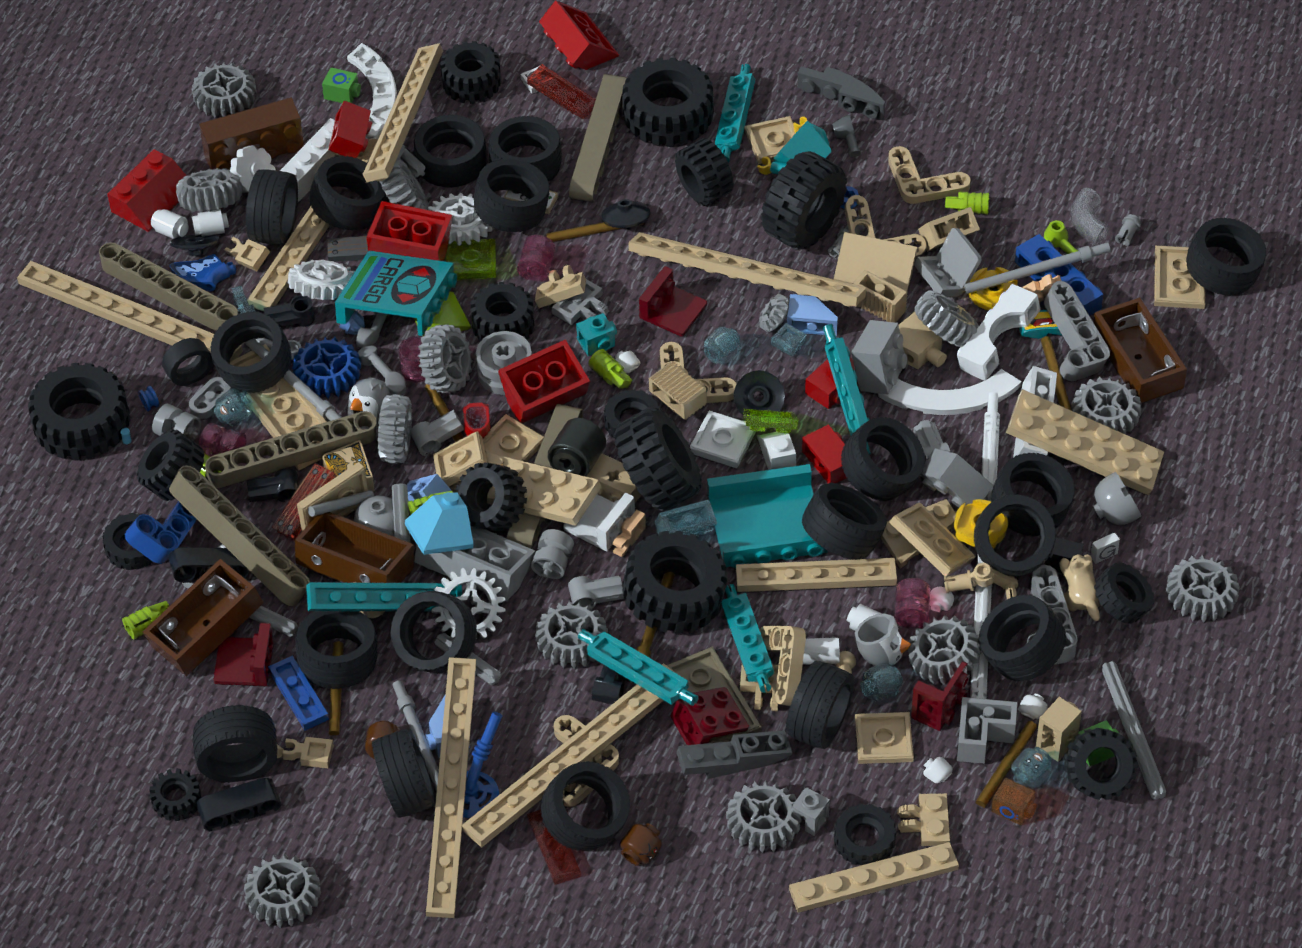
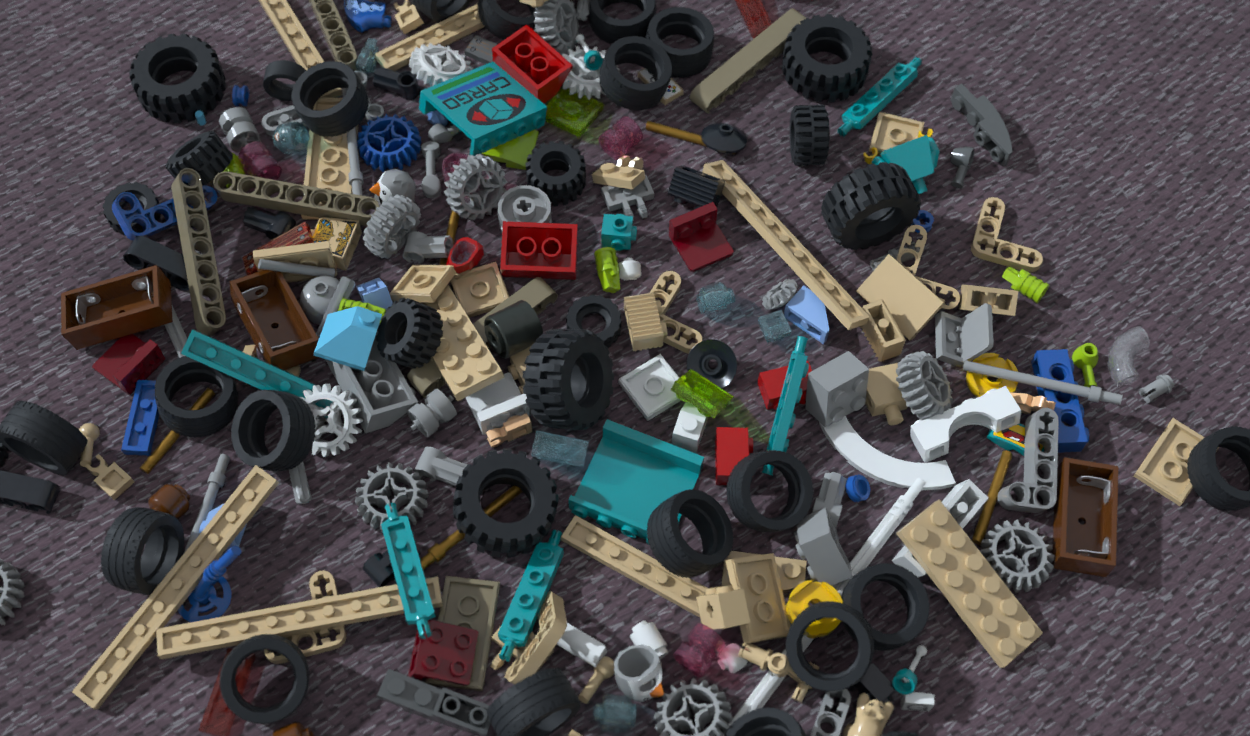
camera: 30 degrees right, 10 degrees up
(149, 613) = (79, 279): lime hinge -> none
(463, 202) = (590, 55): none -> teal hinge
(636, 265) = (695, 187): none -> black brick
(912, 556) = (723, 607): none -> tan brick
(947, 425) = (857, 488): none -> blue tile
(1086, 529) = (907, 675): none -> teal hinge
(1115, 501) = (959, 660): light grey cylinder -> none

